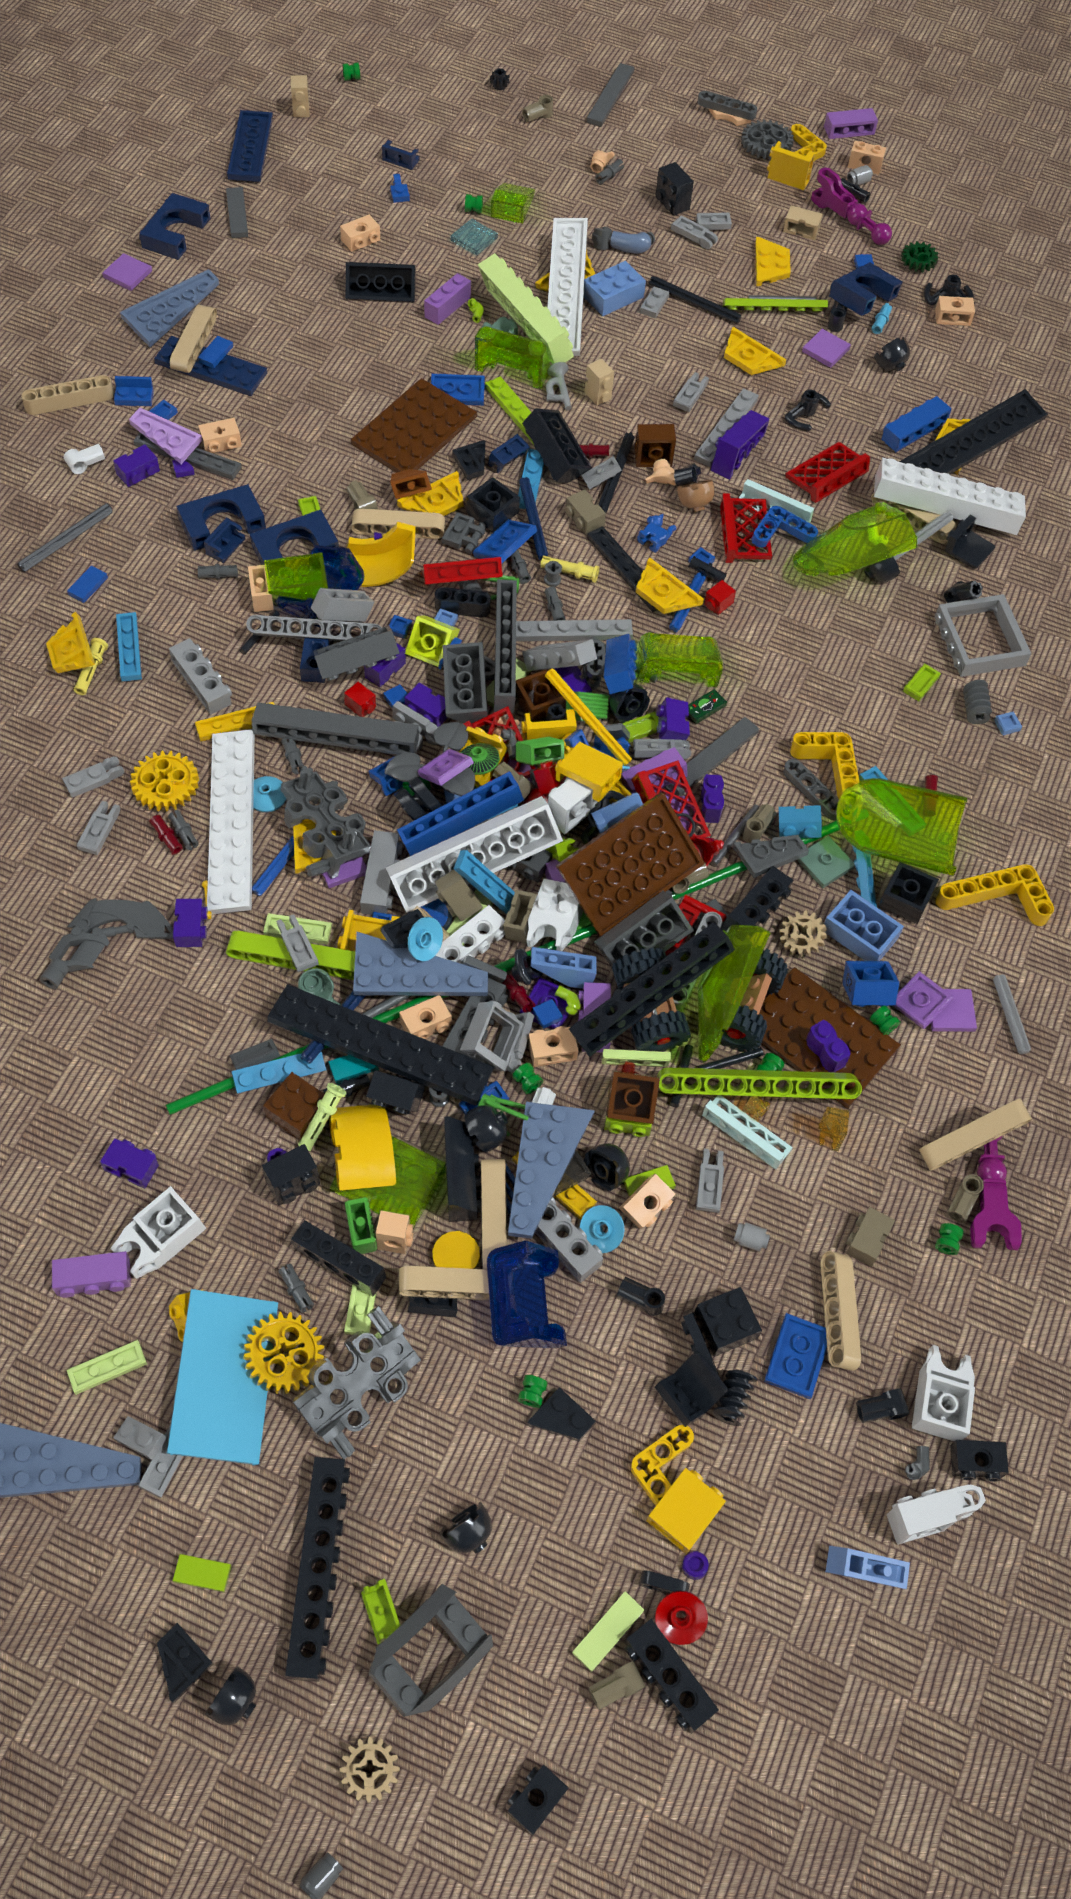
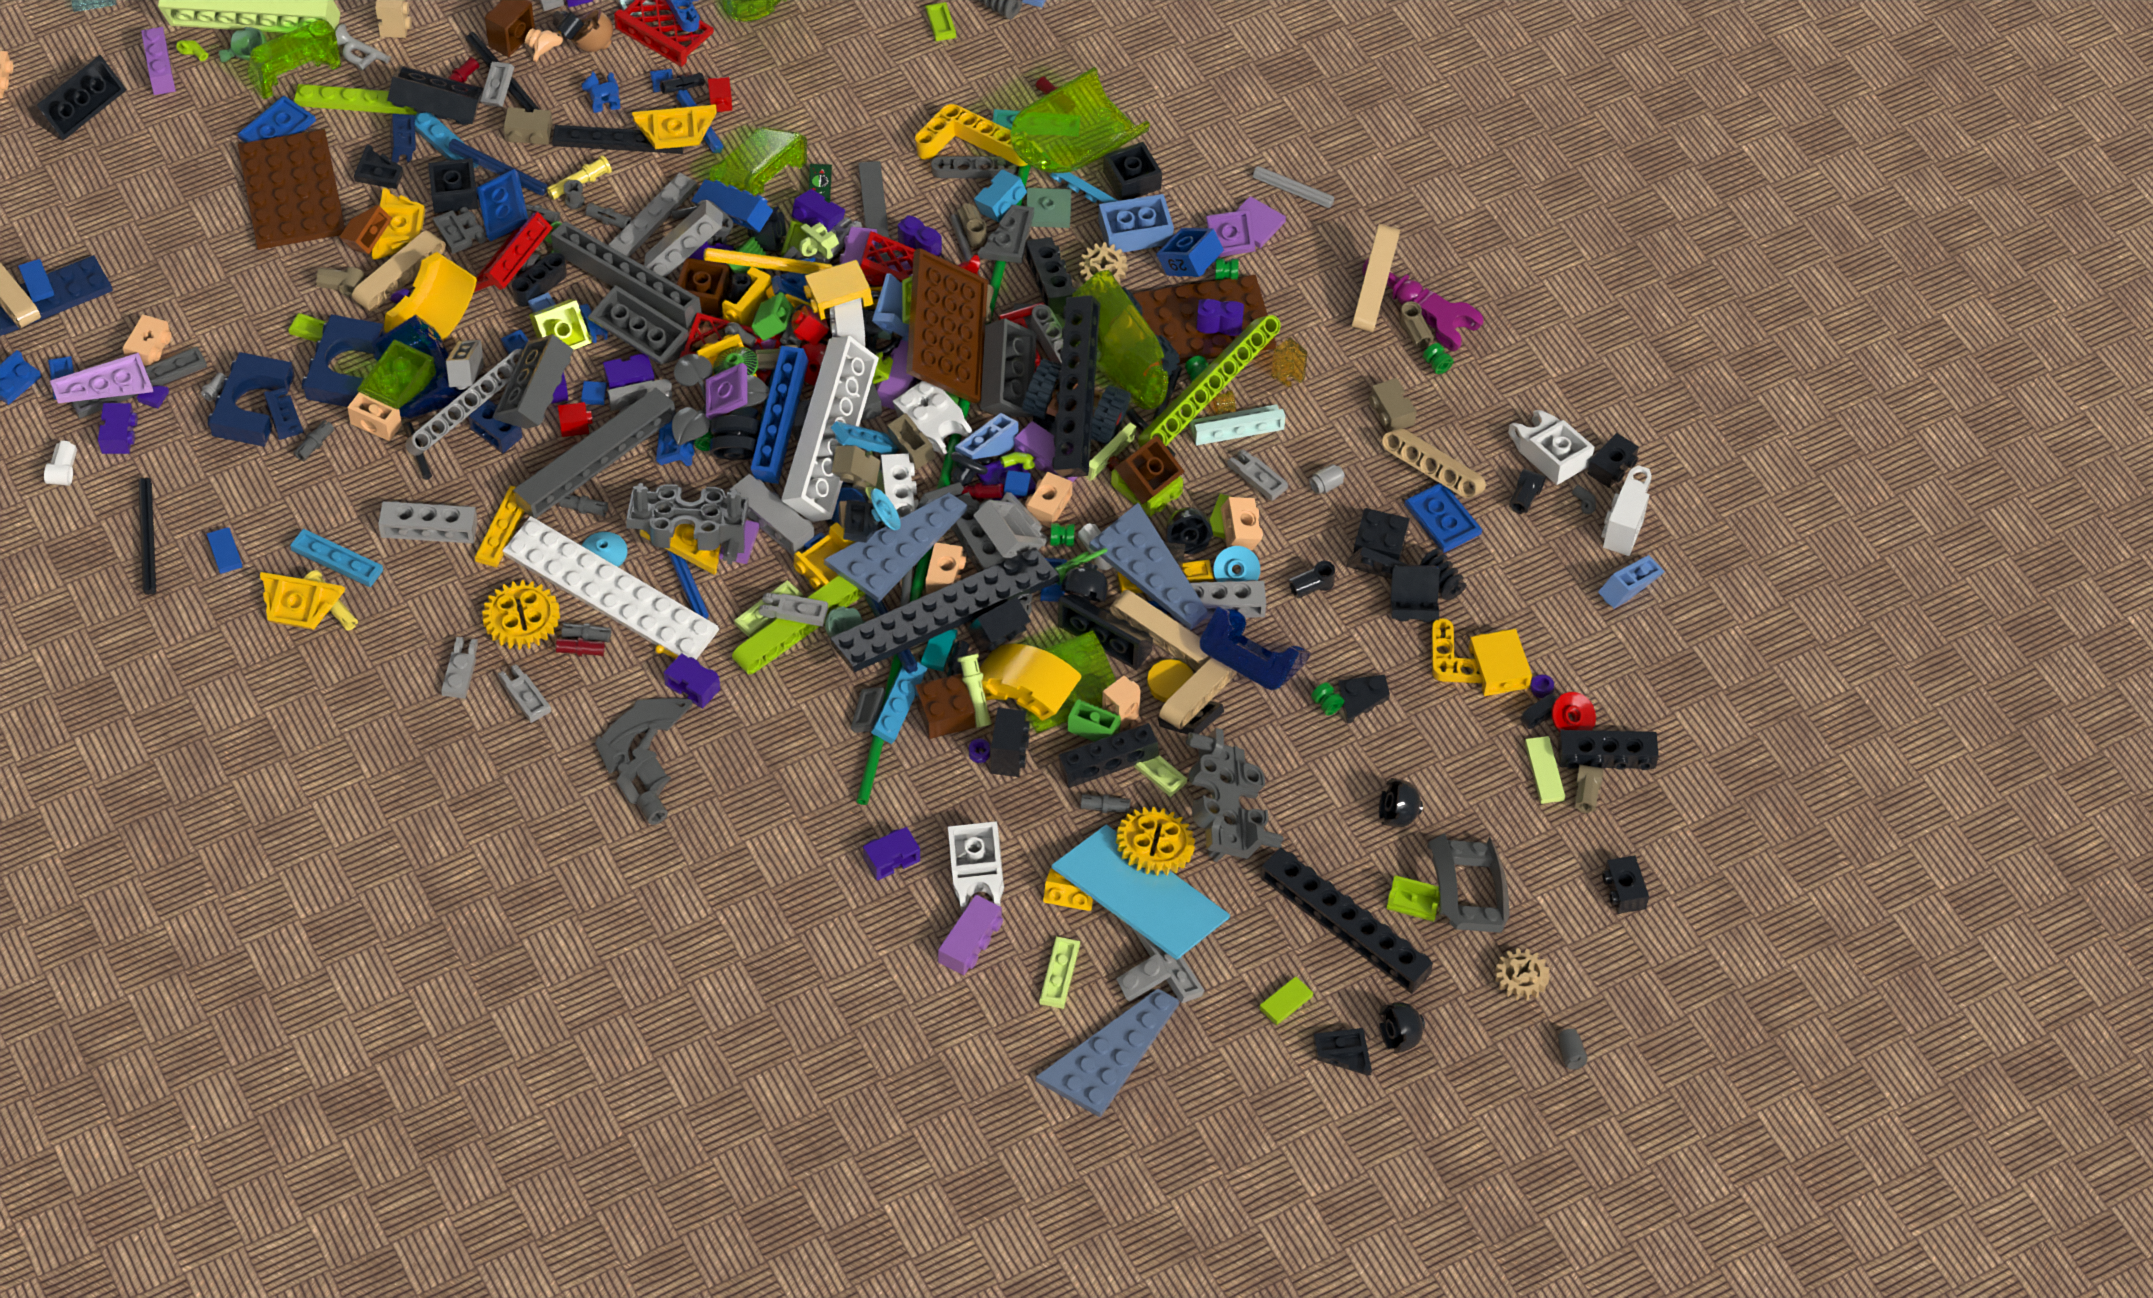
camera: 50 degrees left, 5 degrees down
(213, 490) = (211, 390): none -> light grey pin
(644, 736) = (818, 240): none -> yellowish green hips
(997, 888) = (1187, 94): yellow beam -> none

